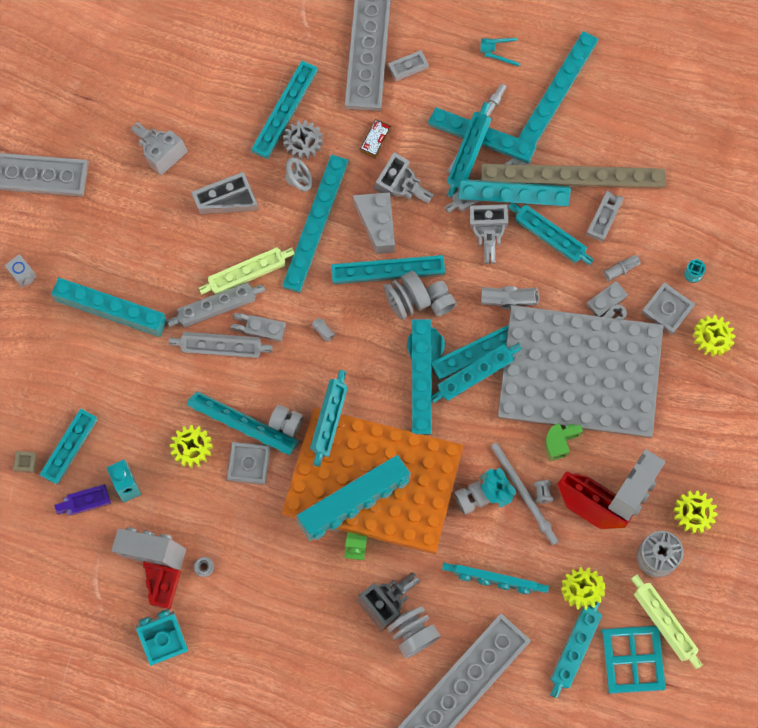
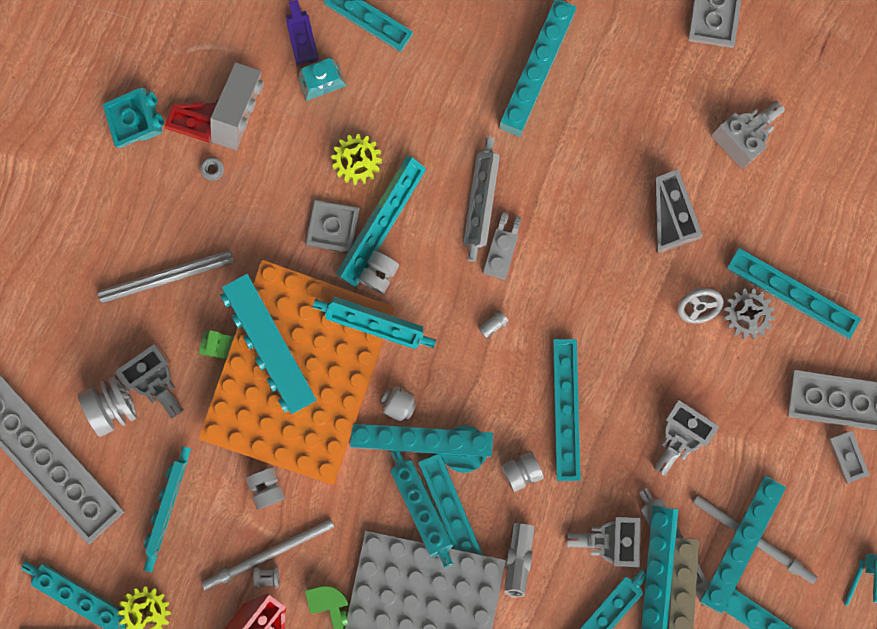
camera: 90 degrees right, 10 degrees up
(216, 305) = (534, 196): light grey plate -> none
(246, 271) = (575, 235): yellowish green plate -> none
(299, 599) = (165, 276): none -> light grey axle
(315, 224) = (636, 324): teal plate -> none
(375, 138) = (748, 407): tile -> none
(377, 220) = (632, 401): light grey wedge -> none
(393, 398) = (398, 403): none -> light grey head
(410, 293) = (526, 429): light grey wheel -> none
(469, 148) = (721, 525): teal plate -> none
(497, 487) = (285, 522): teal plate -> none

